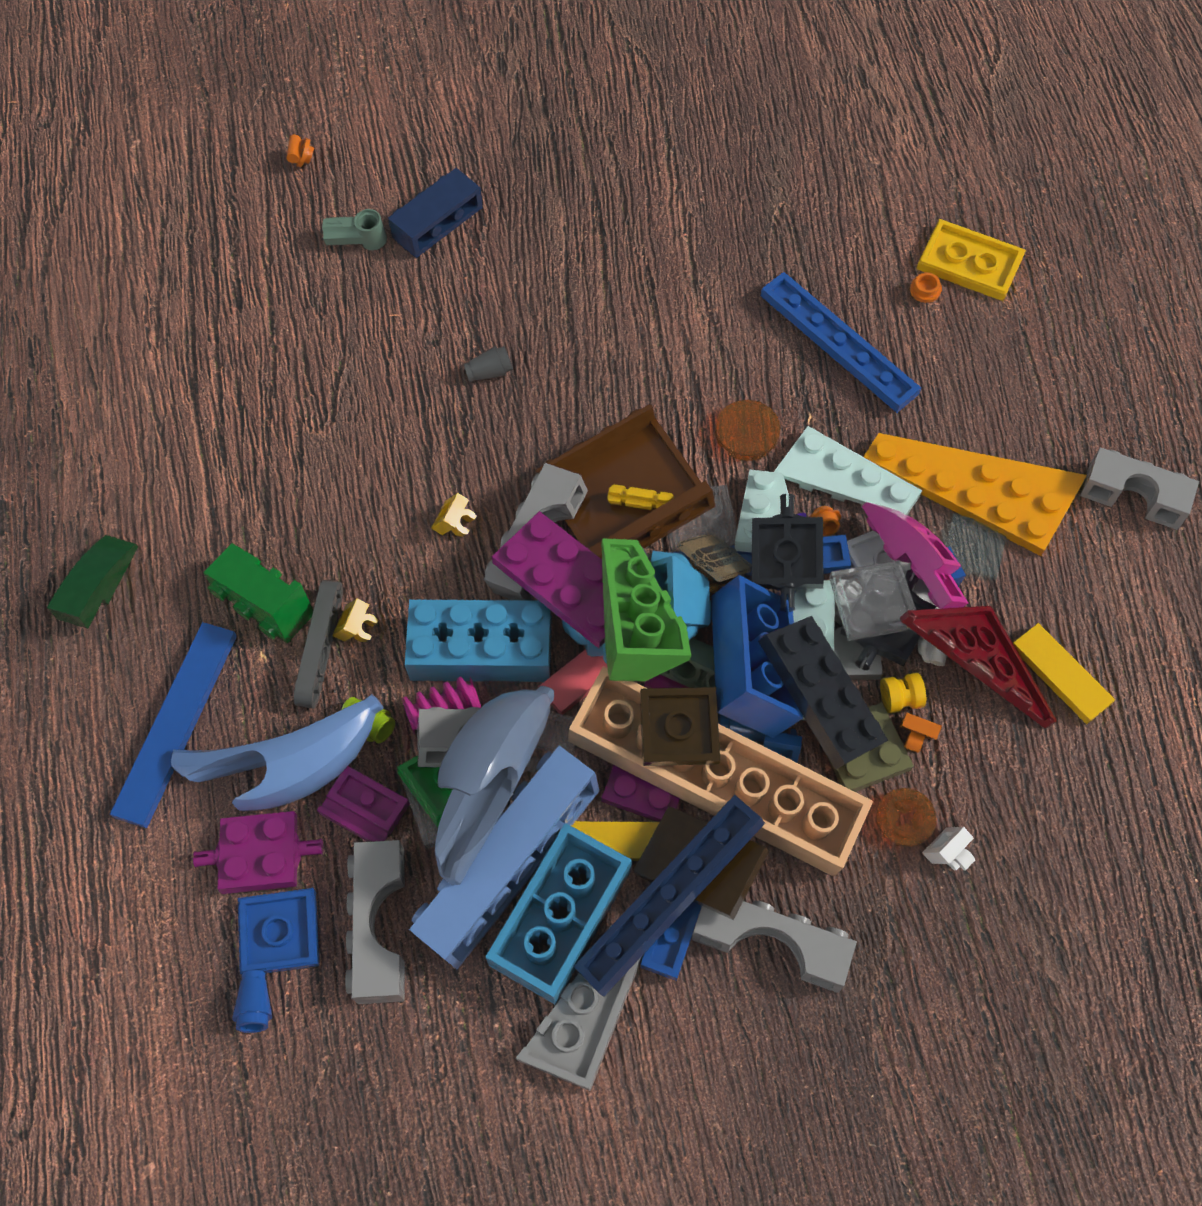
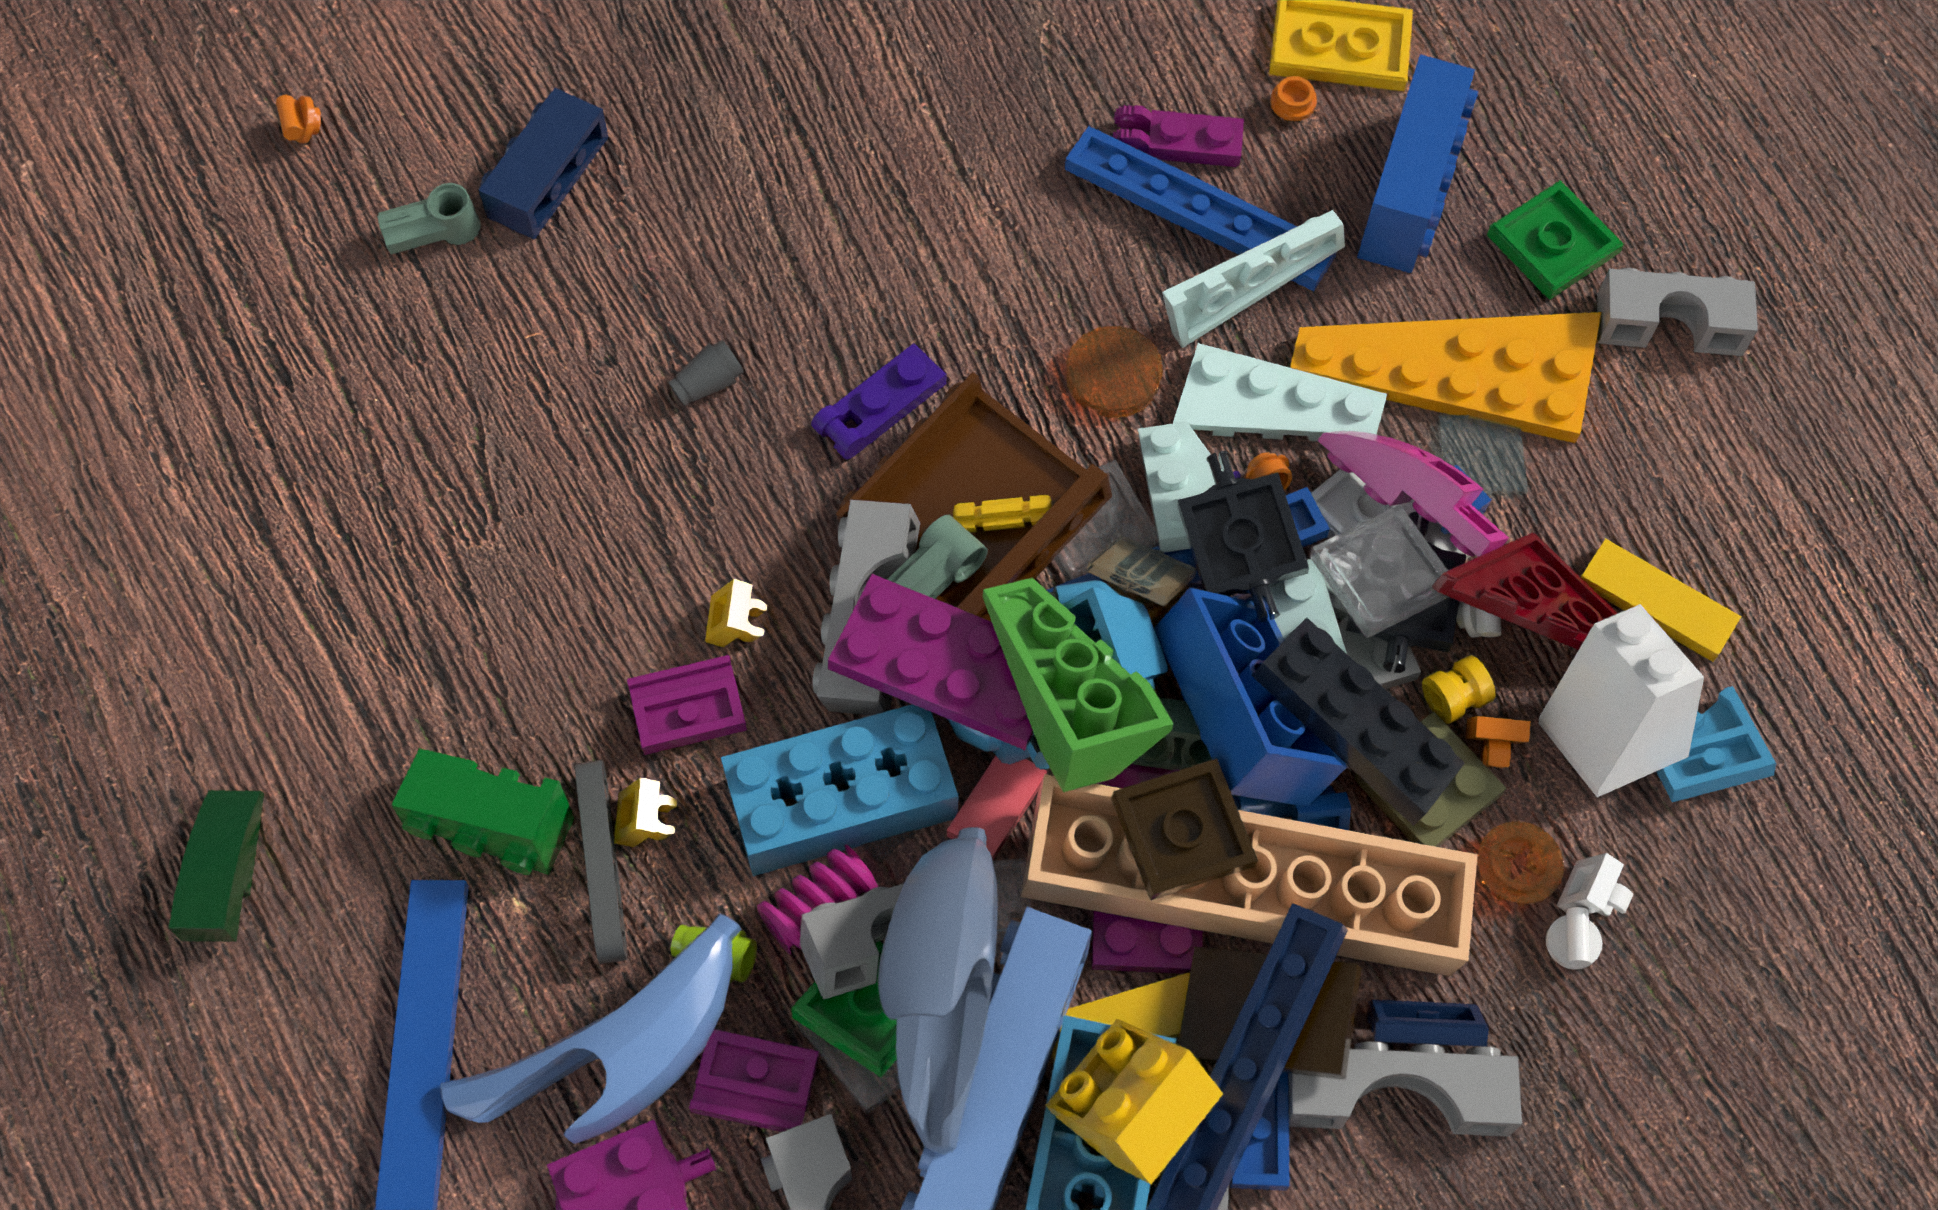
camera: 20 degrees left, 0 degrees up
(405, 563) = (686, 704): none -> magenta plate
(588, 889) = (1135, 1099): none -> yellow slope
(591, 410) = (880, 401): none -> dark purple plate
(594, 514) = (944, 556): none -> sand green piece
(806, 901) = (1427, 1023): none -> dark blue tile
(843, 293) = (1181, 135): none -> magenta hinge
(843, 393) = (1238, 283): none -> light aqua wing
(925, 878) = (1574, 939): none -> white plate
(991, 347) = (1419, 165): none -> blue brick
(1009, 732) = (1624, 703): none -> white slope
(1064, 782) = (1722, 752): none -> dark azure wing
(1071, 420) = (1555, 239): none -> green plate

